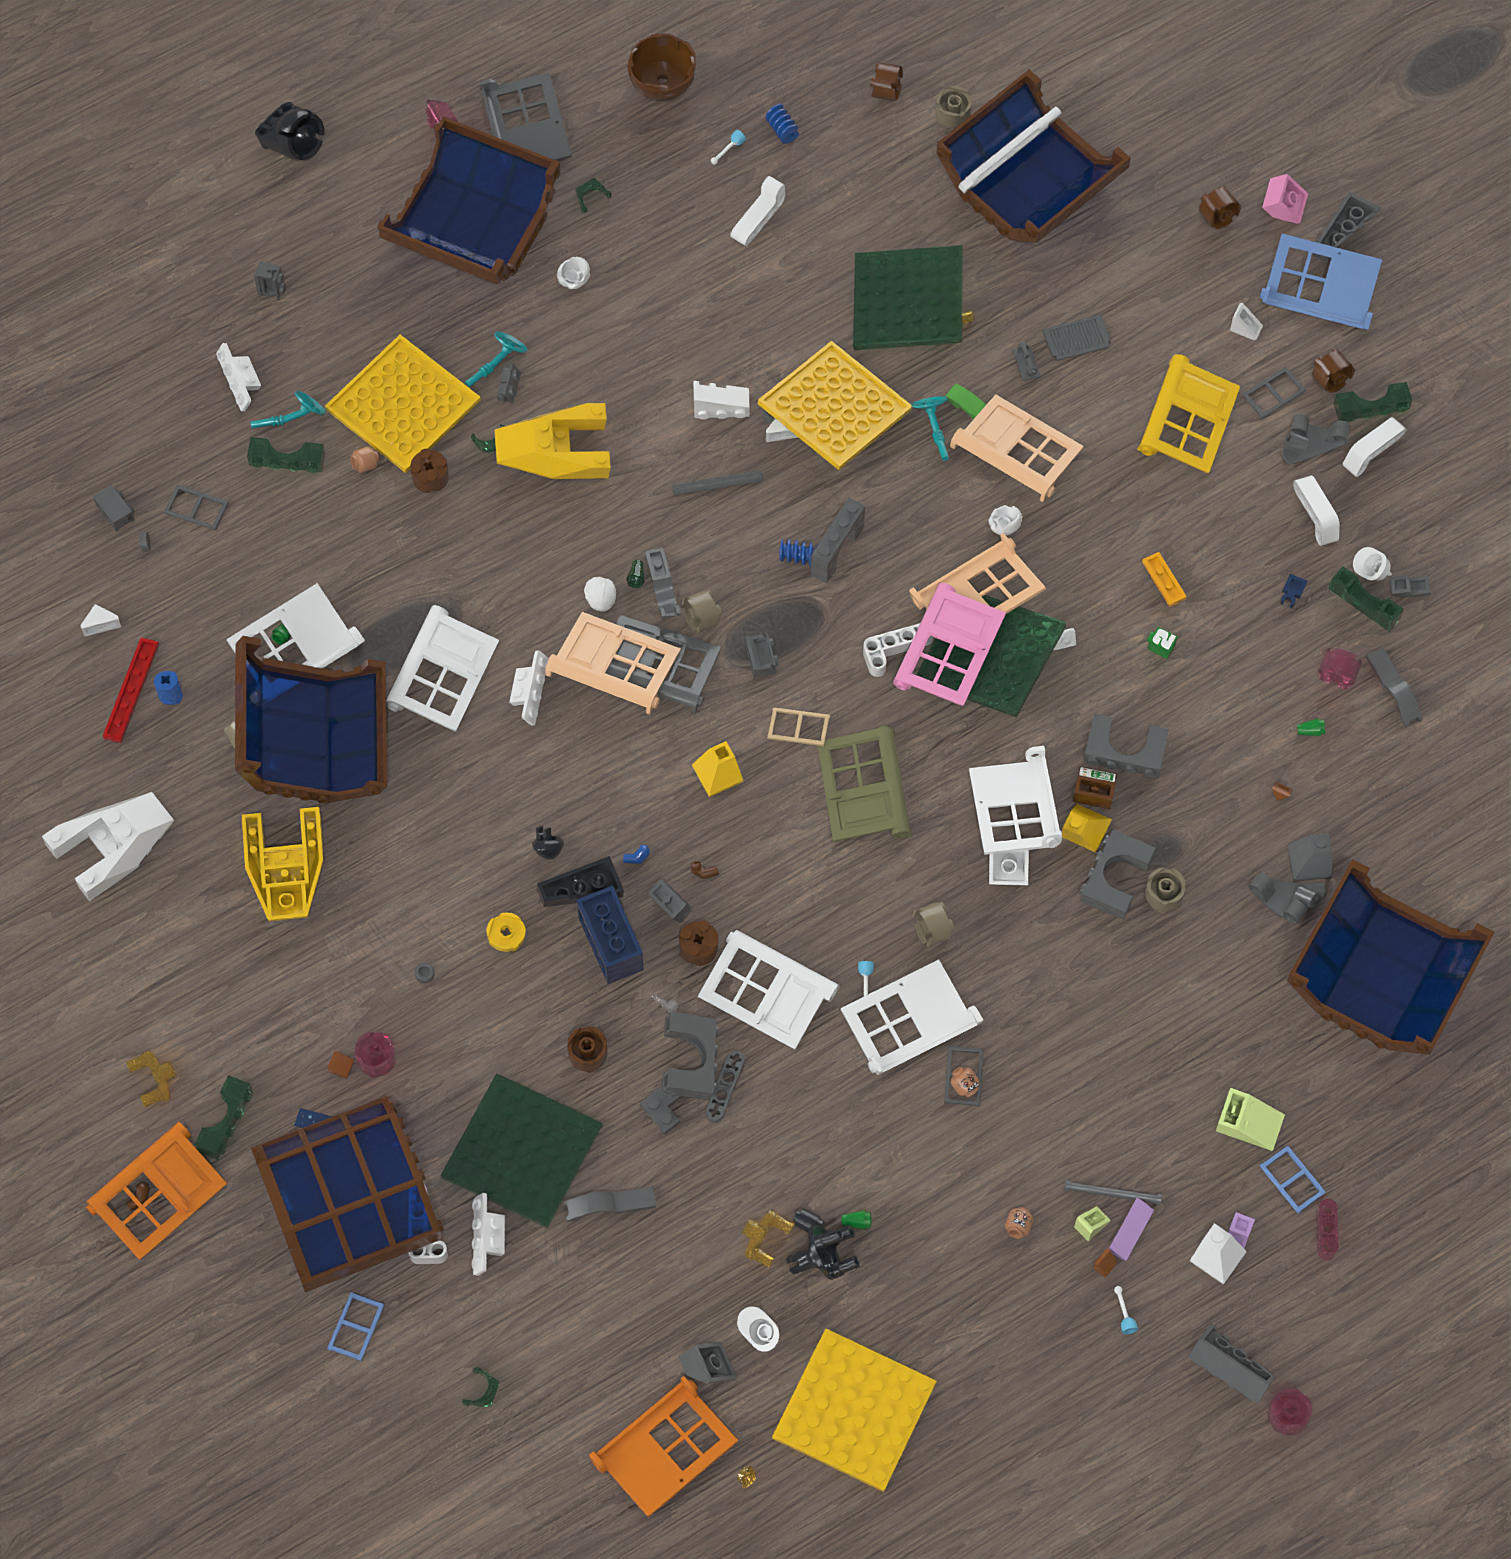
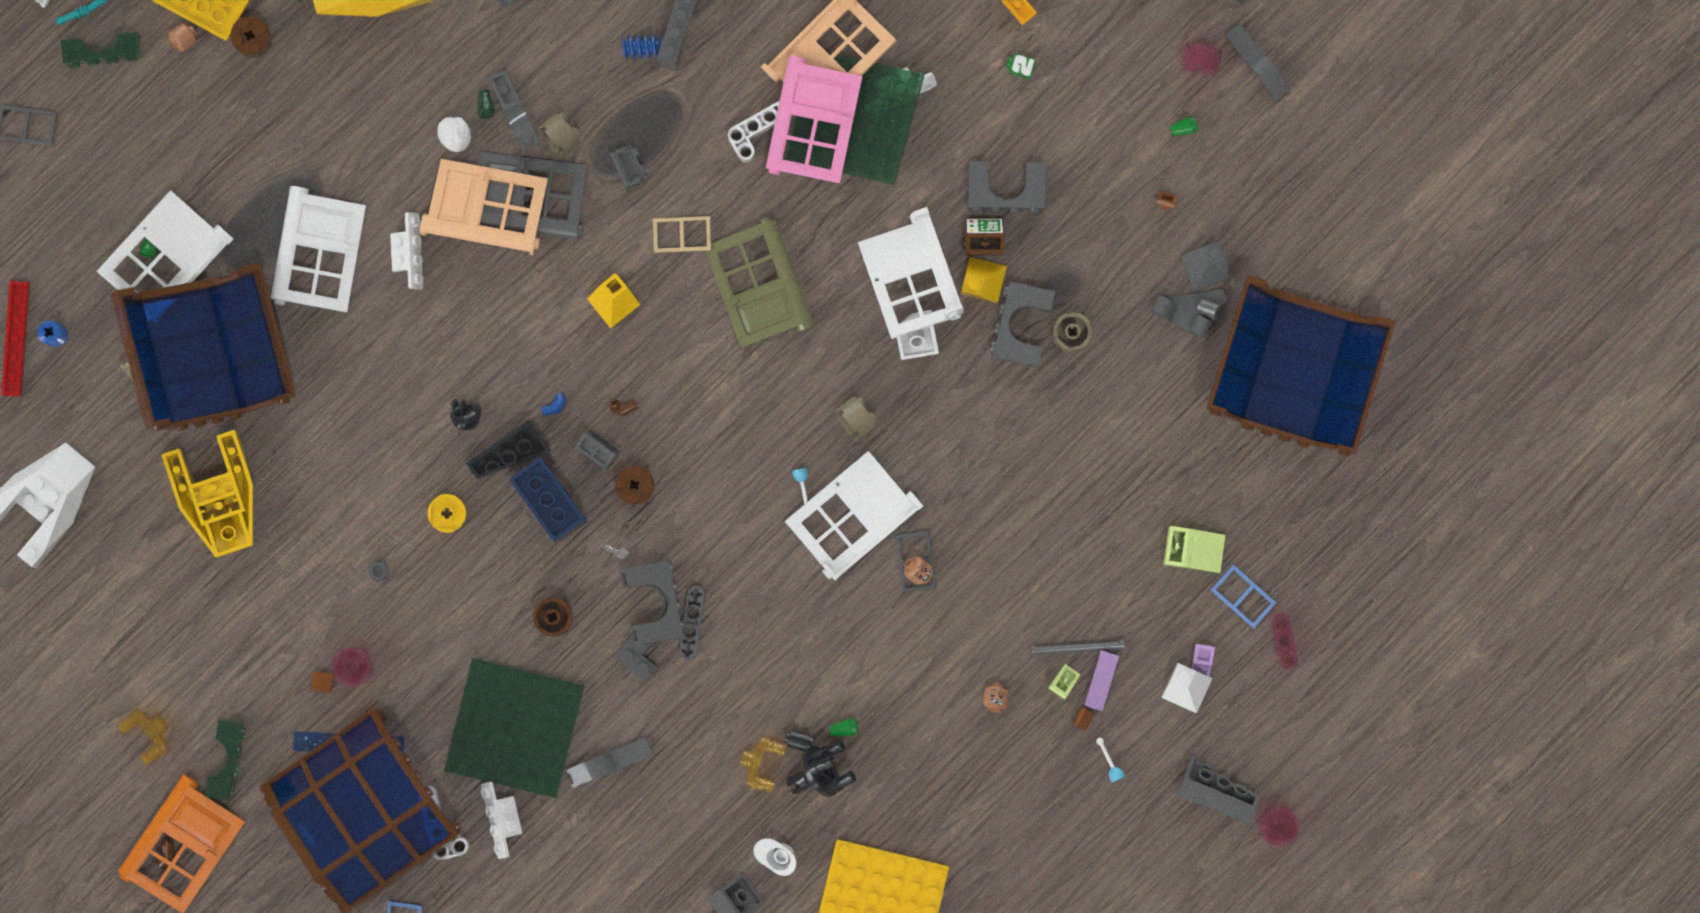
camera: 15 degrees left, 20 degrees up
(788, 1001) = (735, 520): white door -> none

